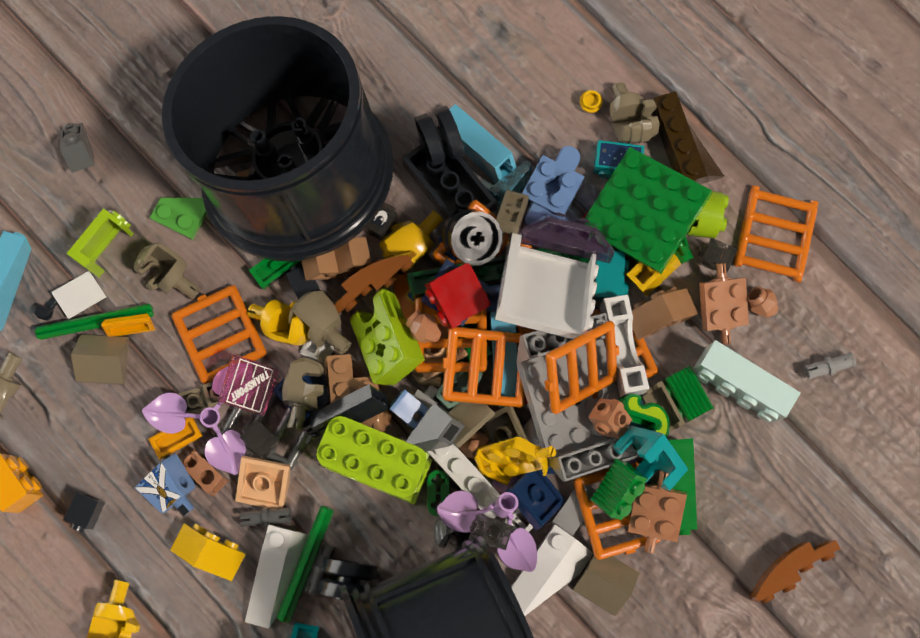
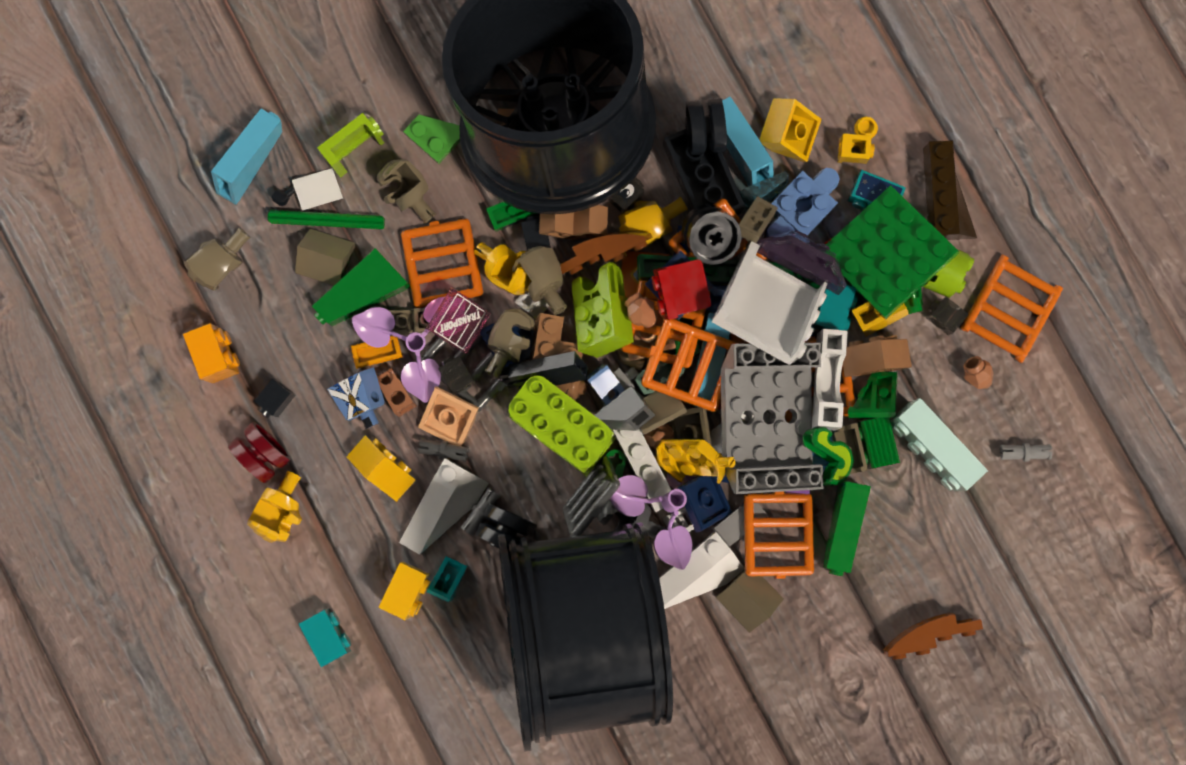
camera: 20 degrees right, 5 degrees up
(76, 147) = (349, 43): dark grey slope -> none
(80, 569) = (259, 452): none -> dark red wheel
(128, 325) = (357, 231): light orange tile -> none
(145, 379) = (360, 289): none -> green slope
(305, 564) = (469, 504): green axle -> none
(423, 524) = (590, 497): none -> dark grey bar
(499, 532) = (661, 523): clear smoke brick -> none
(520, 120) = (790, 129): none -> yellow slope
(569, 350) = (775, 370): orange bar -> none
(588, 115) = (850, 141): none -> yellow brick
(610, 418) = (796, 445): nougat brick -> none
(619, 489) = (786, 515): green brick -> none
(632, 116) = (902, 154): dark tan piece -> none
(657, 454) = (830, 490): teal panel -> none
(657, 514) = (816, 546): nougat plate -> none
(674, 351) = (877, 398): none -> green wing
(723, 303) = (939, 364): nougat plate -> none

